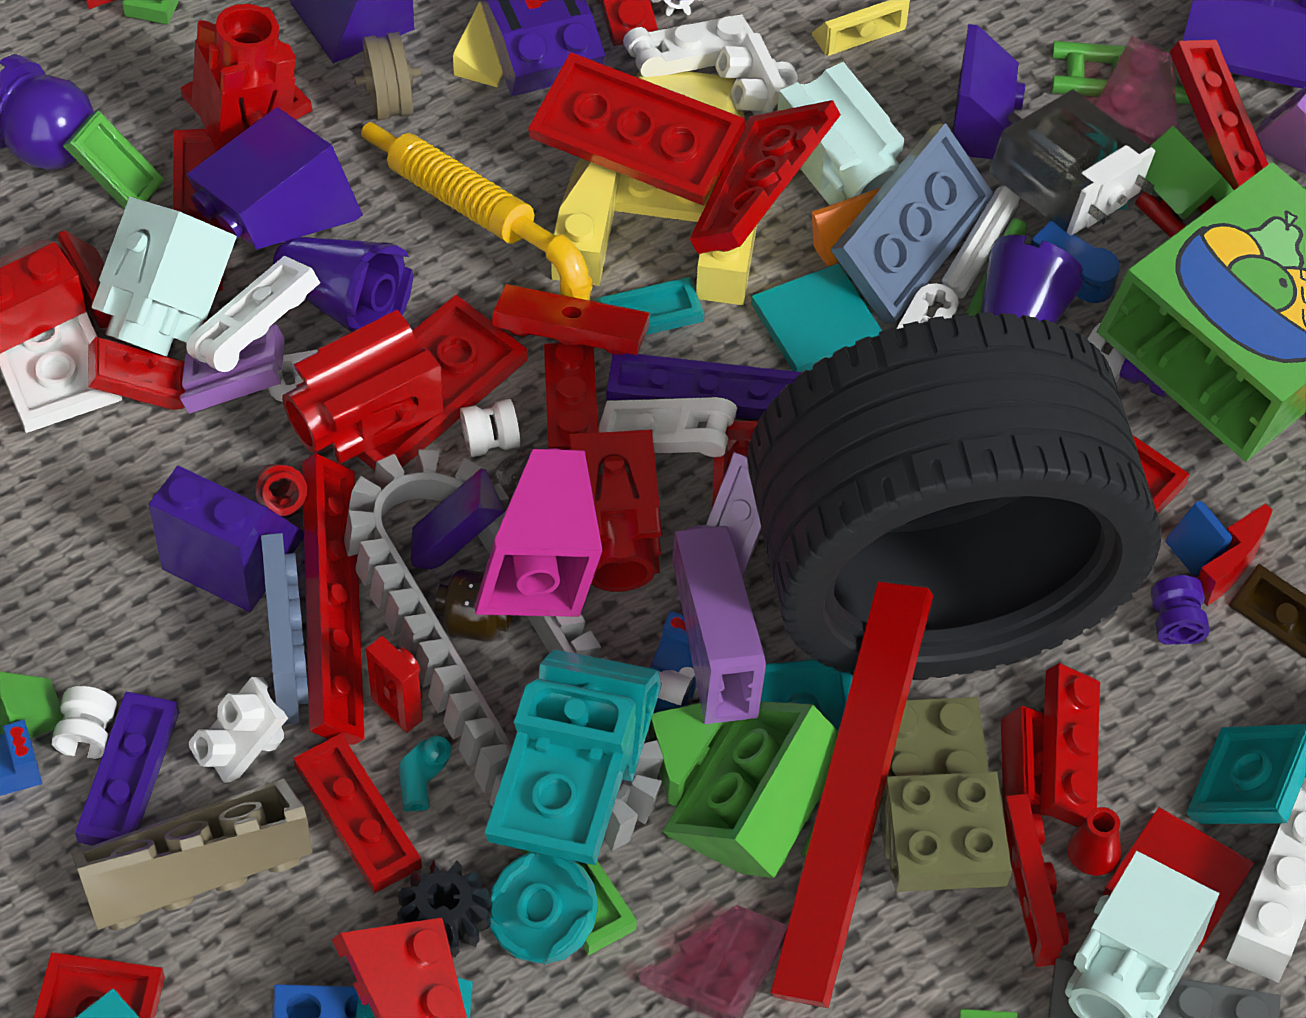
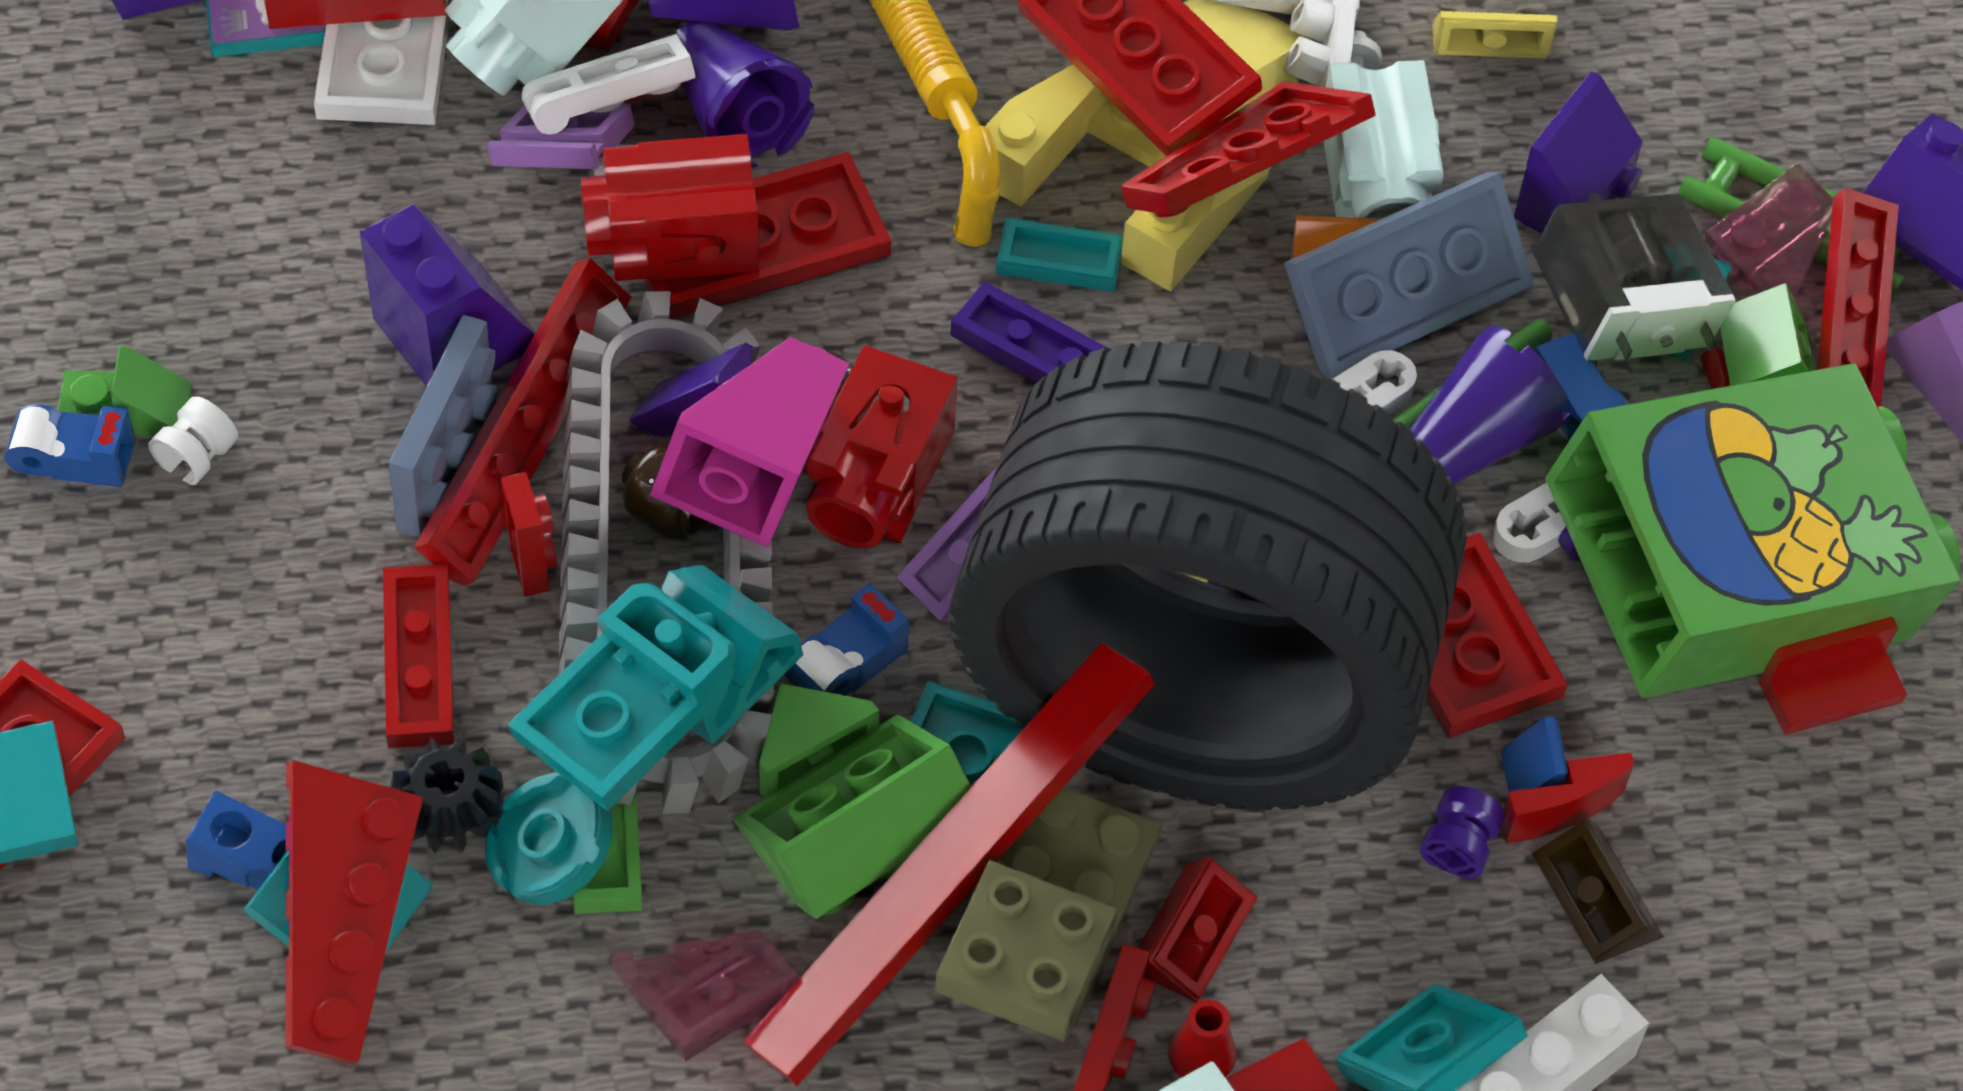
camera: 25 degrees right, 0 degrees up
(128, 768) = (208, 510): dark purple plate -> none
(135, 373) = (455, 99): red plate -> none
(193, 854) = (216, 622): dark tan wedge -> none
(243, 729) = (345, 515): white hips -> none
(288, 496) = (522, 289): red cone -> none
(419, 769) = (513, 638): teal arm -> none
(479, 432) = (798, 304): white wheel -> none
(569, 392) = (912, 305): red plate -> none
(571, 320) = (952, 227): red tile -> none
(674, 422) = (987, 379): white plate -> none
(718, 624) = (898, 615): medium lavender slope -> none
(814, 316) = (1244, 318): teal tile -> none
(981, 240) = (1510, 312): white axle -> none
(1070, 745) = (1243, 922): red plate -> none

